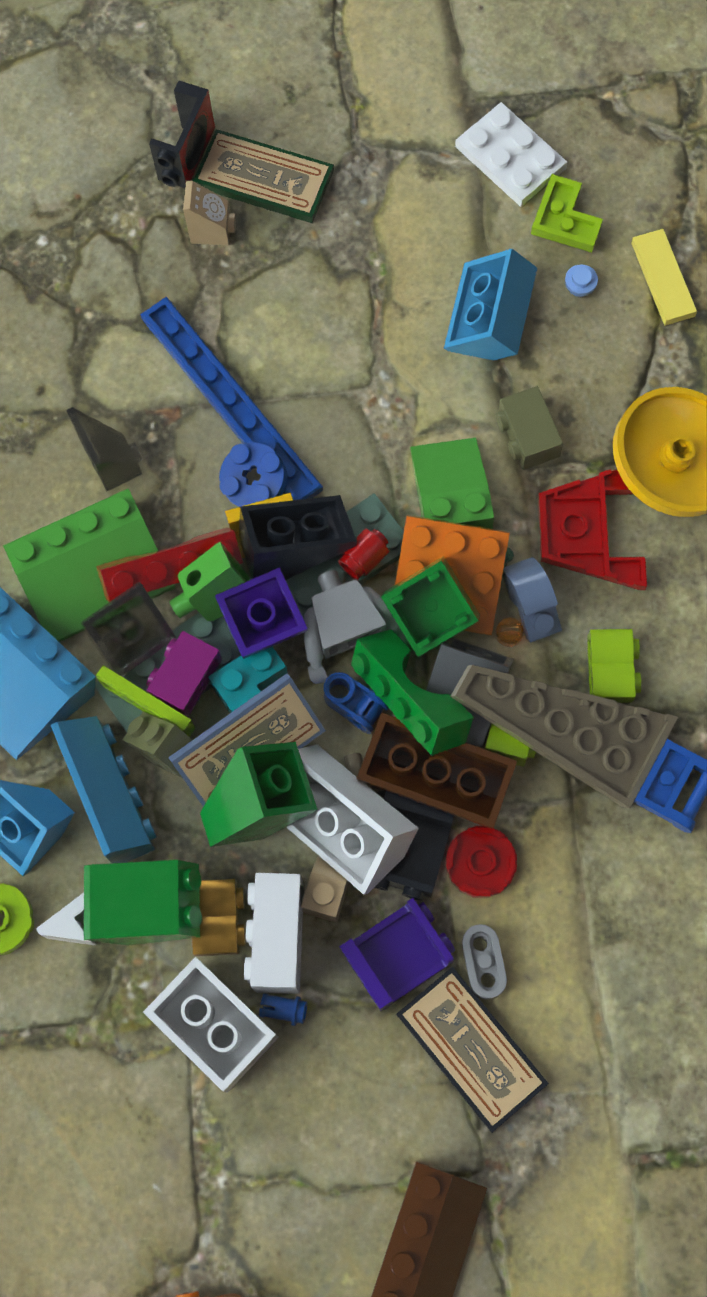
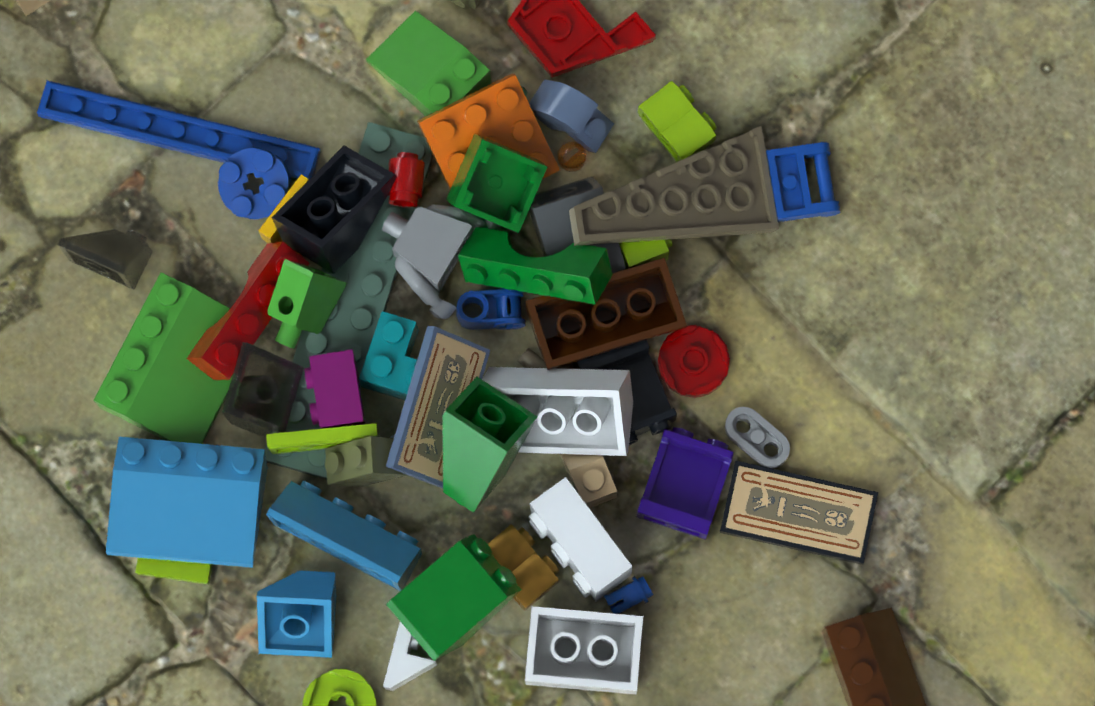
camera: 40 degrees left, 5 degrees up
(261, 613) = (363, 294): dark purple slope -> none

